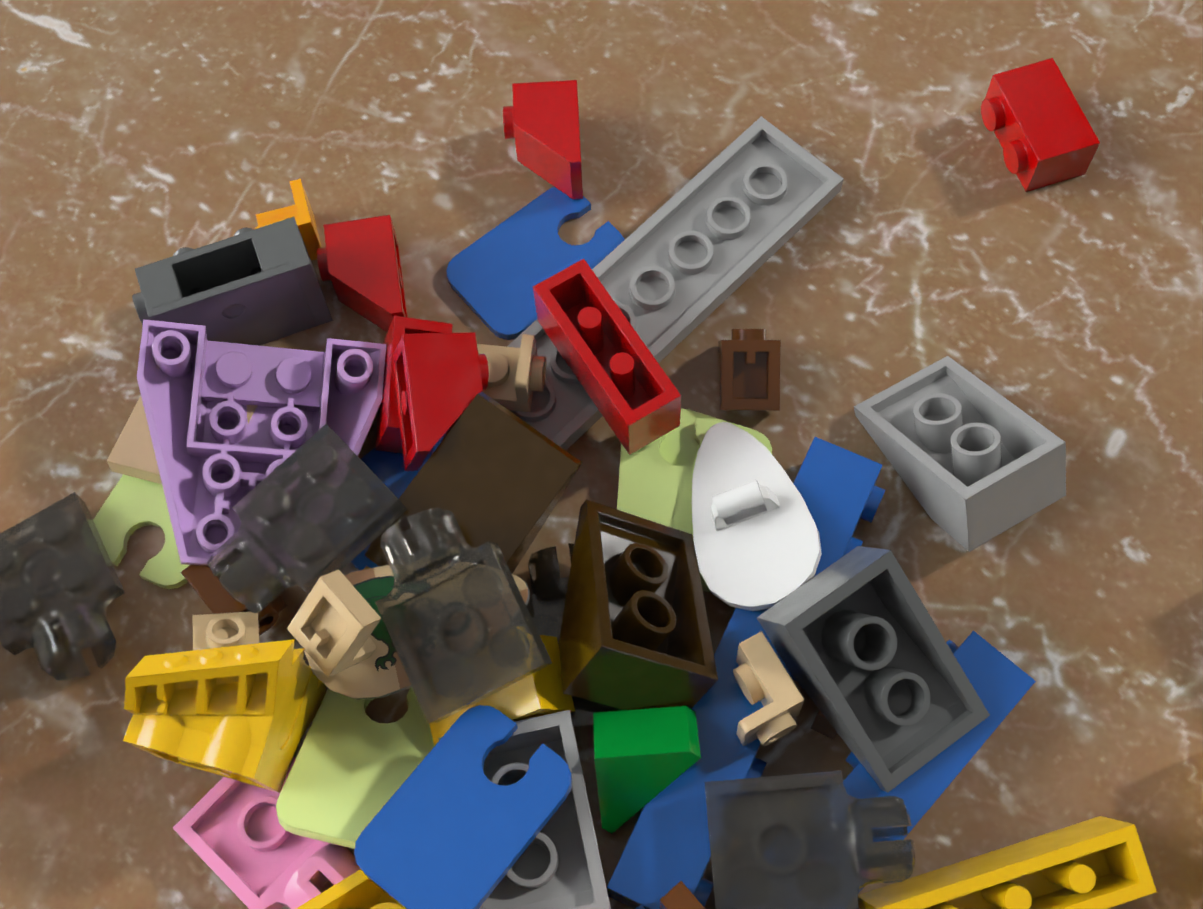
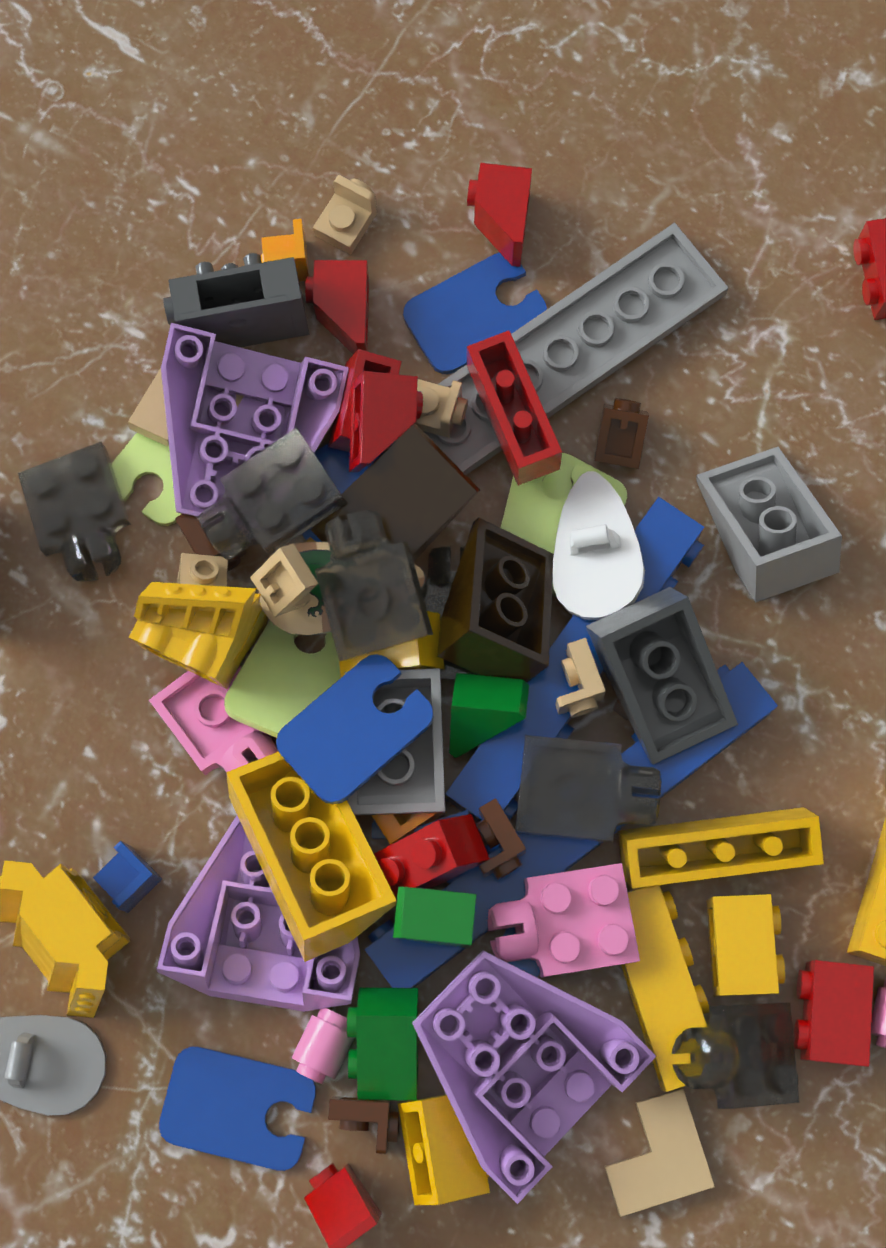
camera: 10 degrees right, 10 degrees up
(358, 172) = (346, 214): none -> tan bracket

